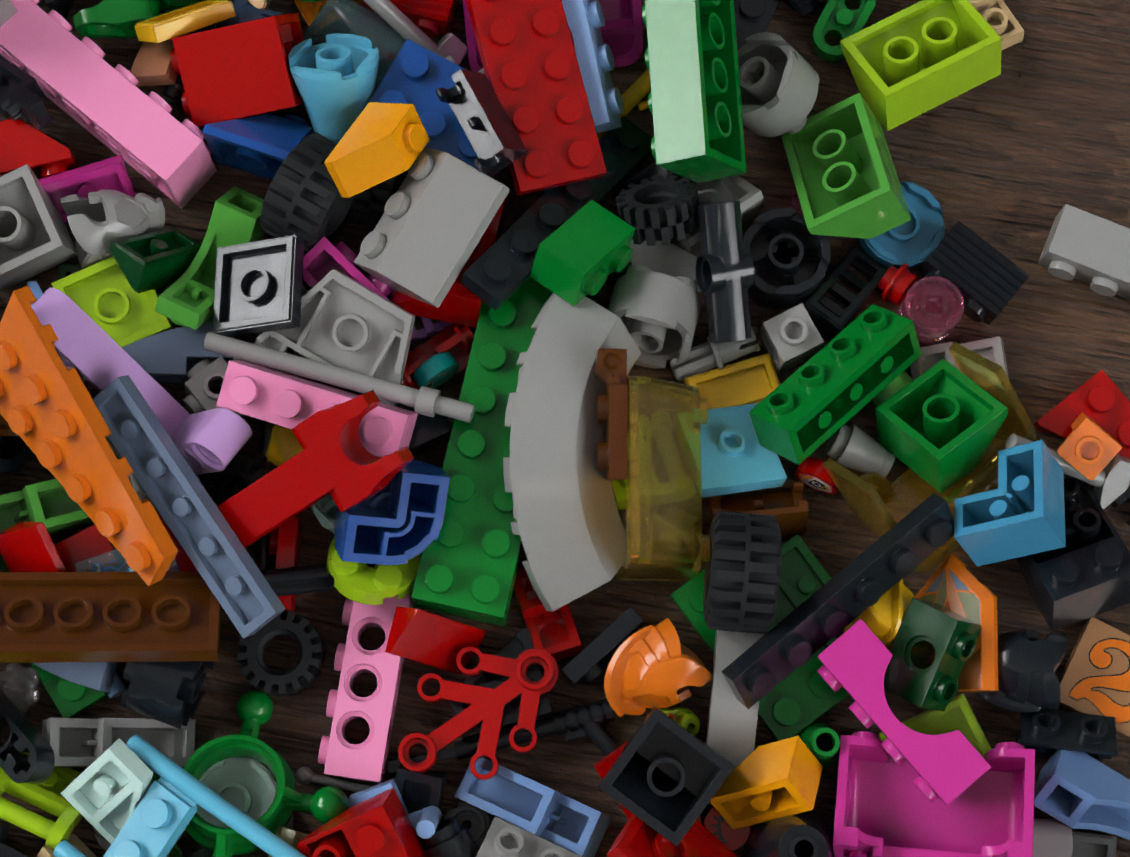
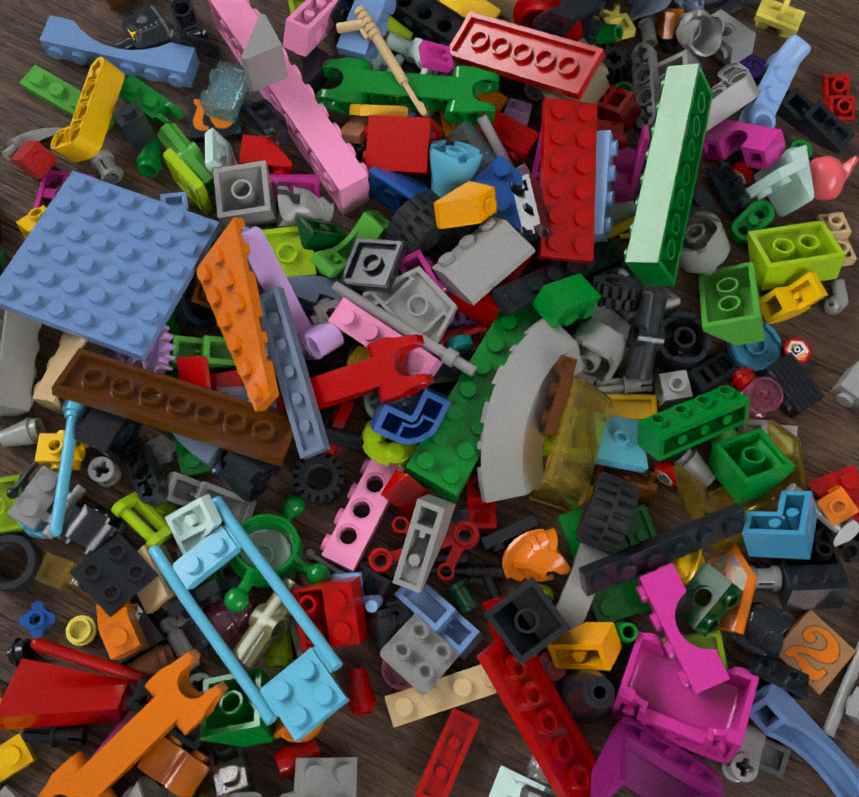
camera: 15 degrees right, 5 degrees down
(474, 704) = (423, 541): none -> light grey slope
(562, 765) = (463, 596): none -> clear green bush
(628, 68) = (622, 211): none -> light grey cone
(938, 133) = (793, 299): none -> yellow brick
(970, 209) = (798, 347): none -> tile
(1013, 589) = (768, 577): none -> light grey bush
(1014, 106) = (838, 300): none -> light grey arm

